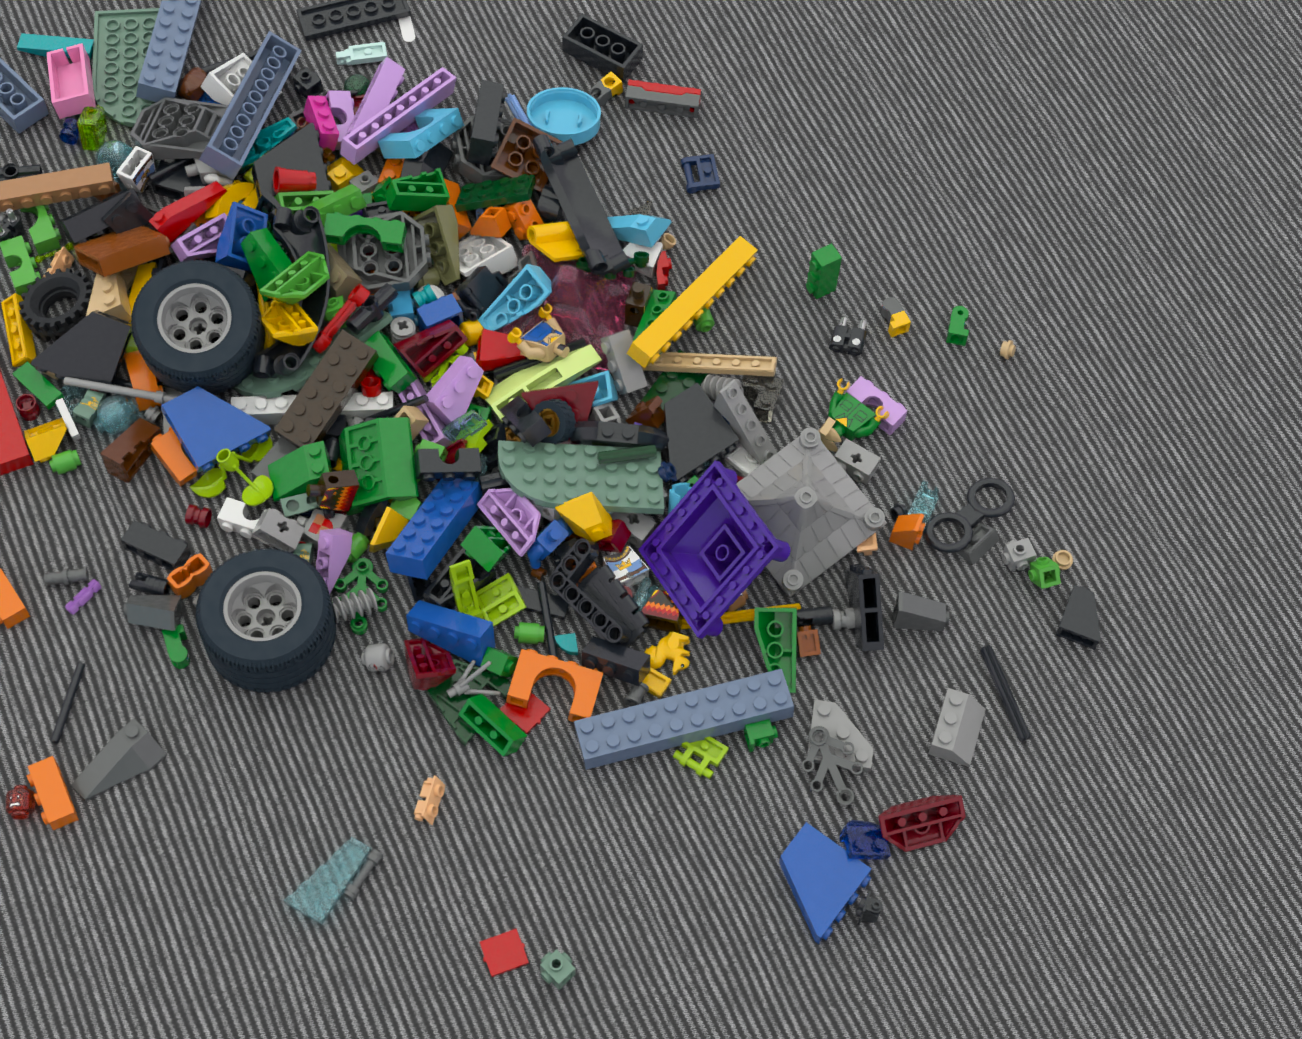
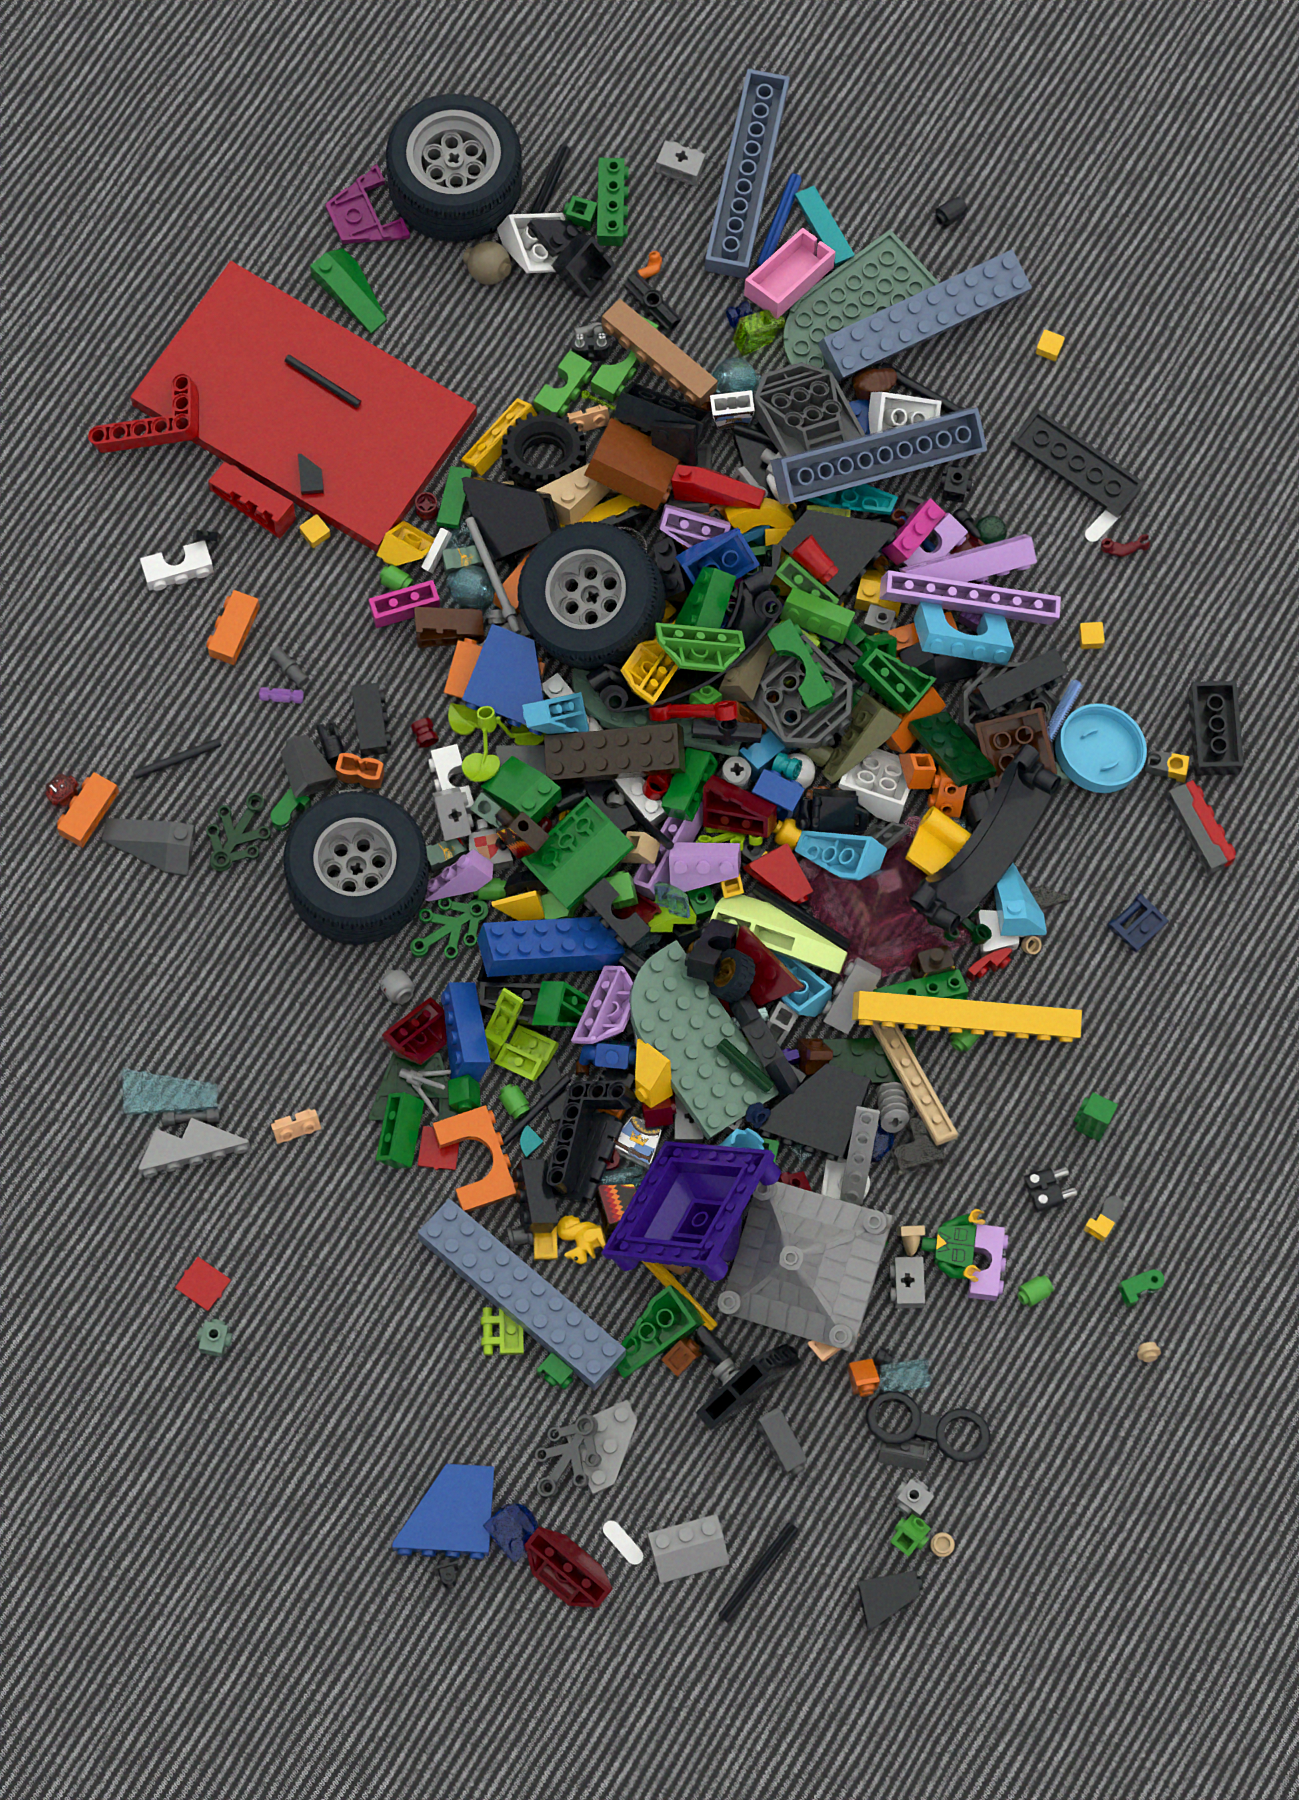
camera: 55 degrees right, 10 degrees up
(26, 69) = (780, 218): none -> blue axle
(87, 467) = (400, 603): none -> dark pink brick
(165, 699) = (237, 835): none -> dark green plant
(266, 408) = (557, 715): none -> medium azure wedge
(354, 604) = (427, 929): light grey piece -> none
(362, 54) = (1034, 508): light aqua hinge -> none
(389, 884) = (197, 1144): none -> light grey slope
(428, 30) = (1121, 550): none -> dark red arm
(476, 75) = (1091, 635): none -> yellow piece
(542, 341) = (814, 907): torso -> none
(916, 389) = (1035, 1290): none -> bright green brick
(920, 772) = (623, 1542): none -> white sticker

